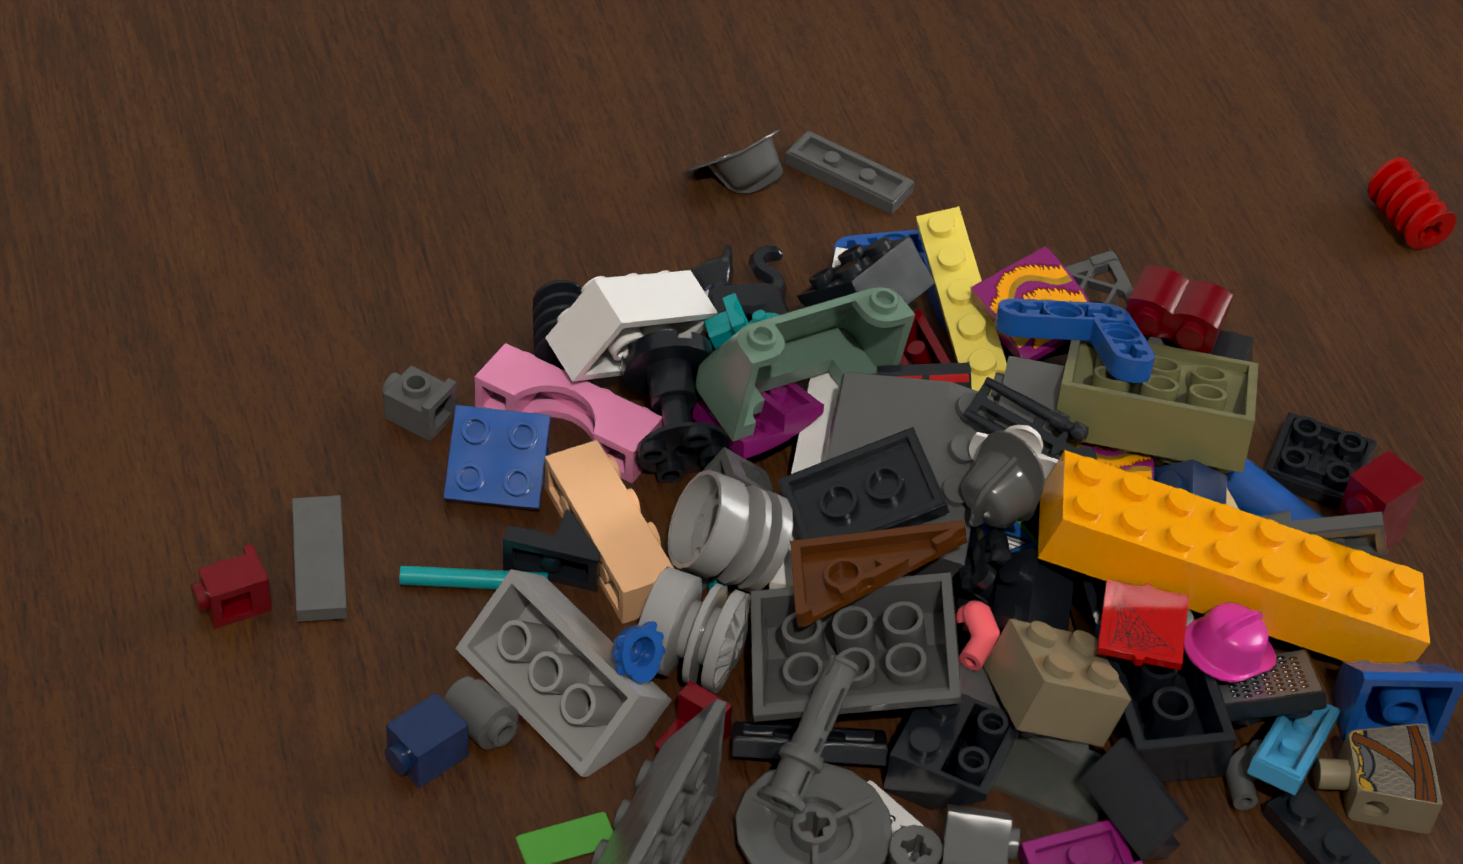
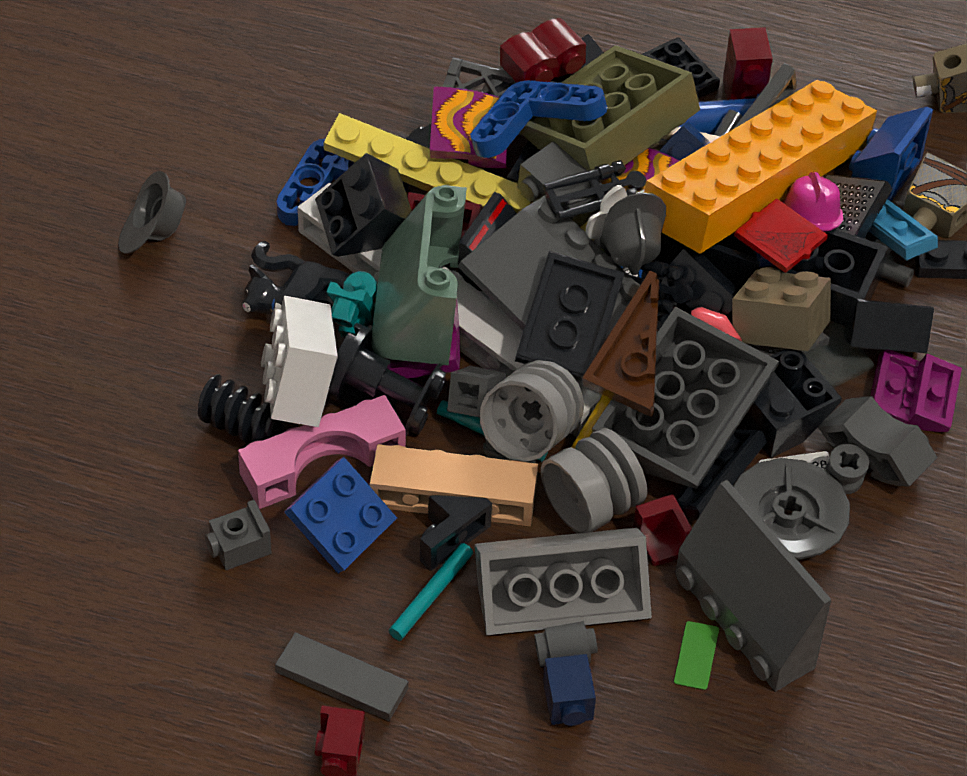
camera: 55 degrees left, 5 degrees up
(638, 652) = (606, 517): blue animal -> none
(802, 755) = (751, 476): dark grey pin -> none
(849, 172) = (208, 160): dark grey tile -> none

